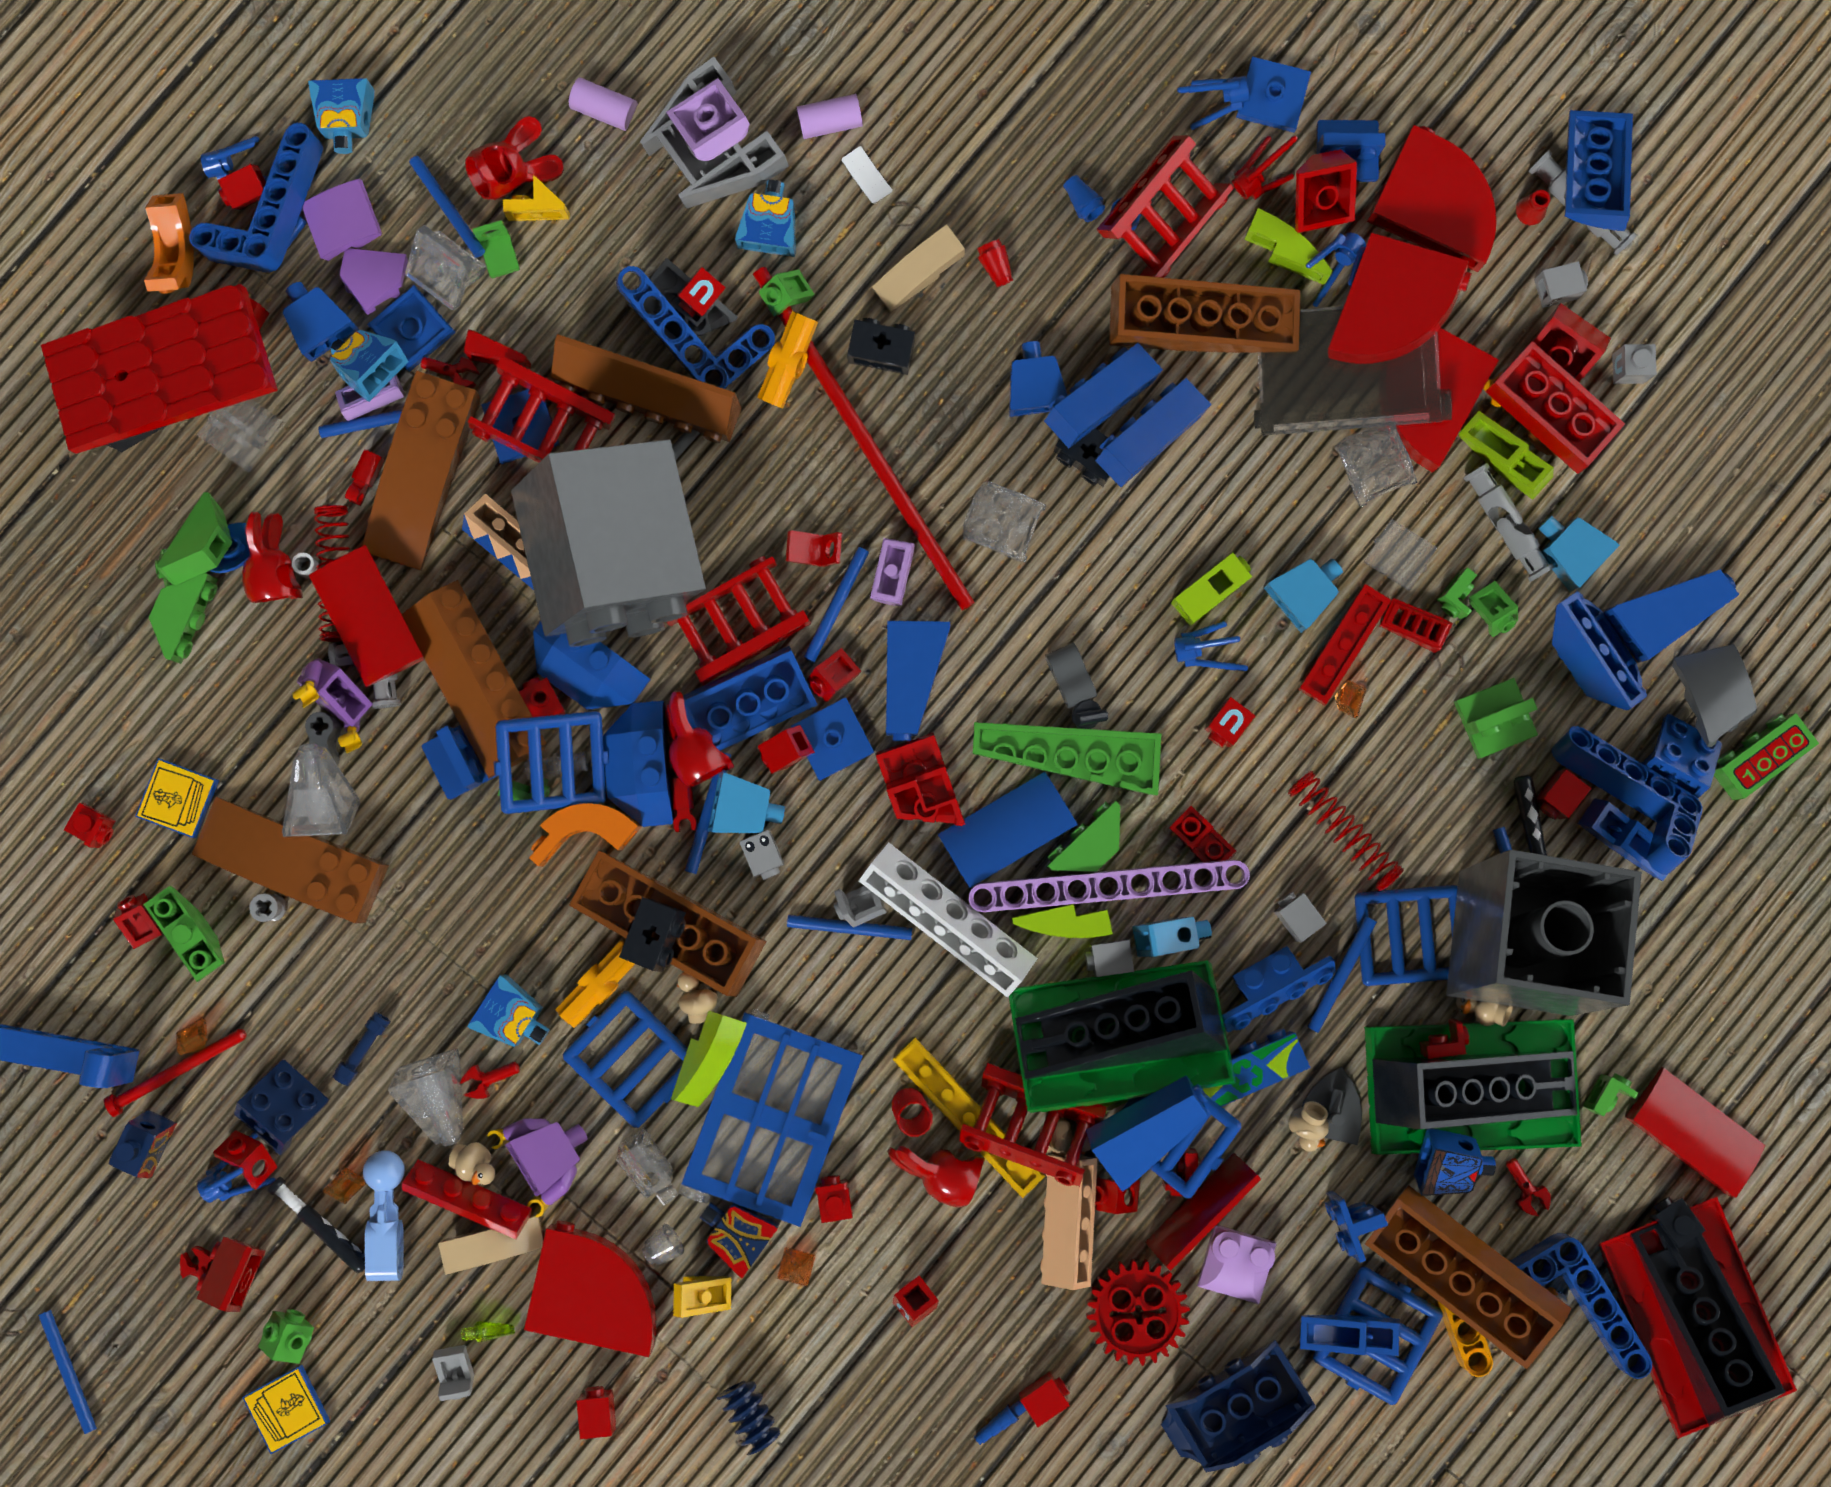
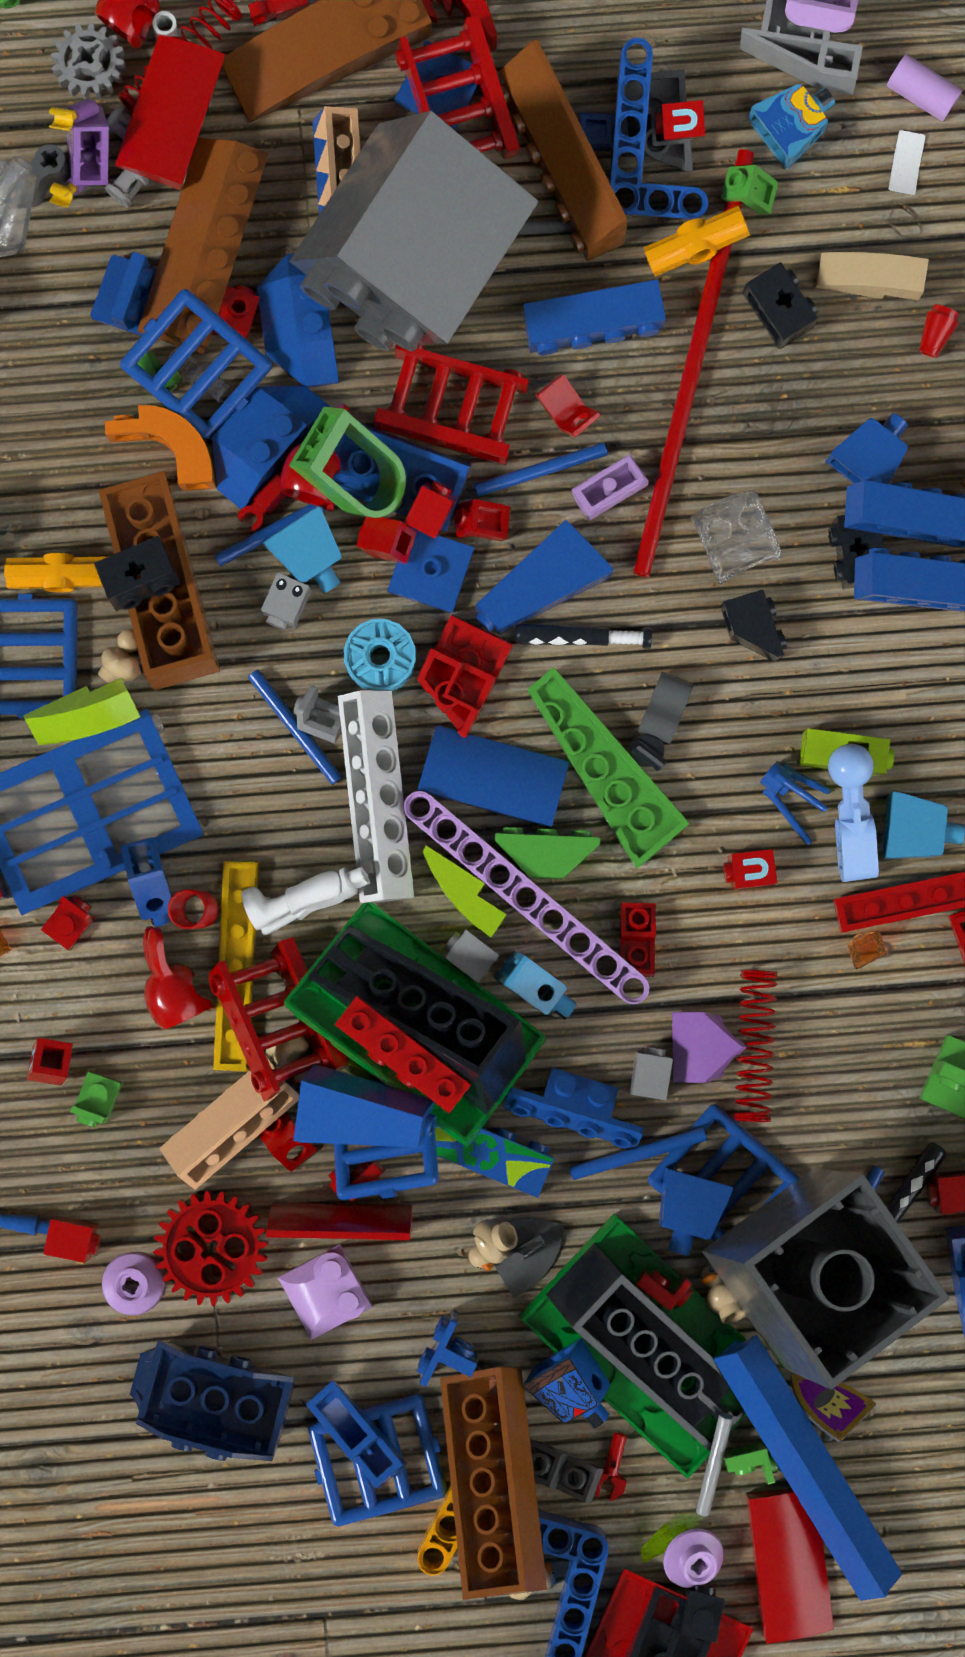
camera: 40 degrees right, 0 degrees up
(277, 649) = (97, 49): none -> light grey gear
(650, 351) = (598, 130): none -> blue tile
(689, 733) = (319, 447): none -> bright green window
(771, 473) = (594, 317): none -> blue brick
(795, 701) = (431, 508): none -> red brick
(838, 827) = (375, 635): none -> medium azure wheel
(869, 1126) = (151, 887): none -> blue torso
(960, 694) = (572, 635): none -> black piece
(968, 1294) = (96, 1099): none -> bright green bracket
(969, 1036) = (302, 899): none -> white piece
(1071, 568) = (752, 625): none -> black slope
(1106, 1371) = (141, 1269): none -> lavender piece
(1139, 1067) = (403, 1054): none -> red bracket
(1268, 631) = (855, 829): none -> light blue beam
(1313, 866) = (701, 1047): none -> medium lavender slope
(1411, 974) = (690, 1207): none -> blue torso
(1501, 1220) = (564, 1471): none -> dark grey slope
(1588, 1119) = (714, 1464): none -> light grey bar
(1605, 1200) = (660, 1540): none -> clear neon green bar
(1626, 1190) = (685, 1551): none -> lavender piece
(1633, 1018) = (831, 1410): none -> shield
(1650, 1061) = (808, 1468): none -> blue tile

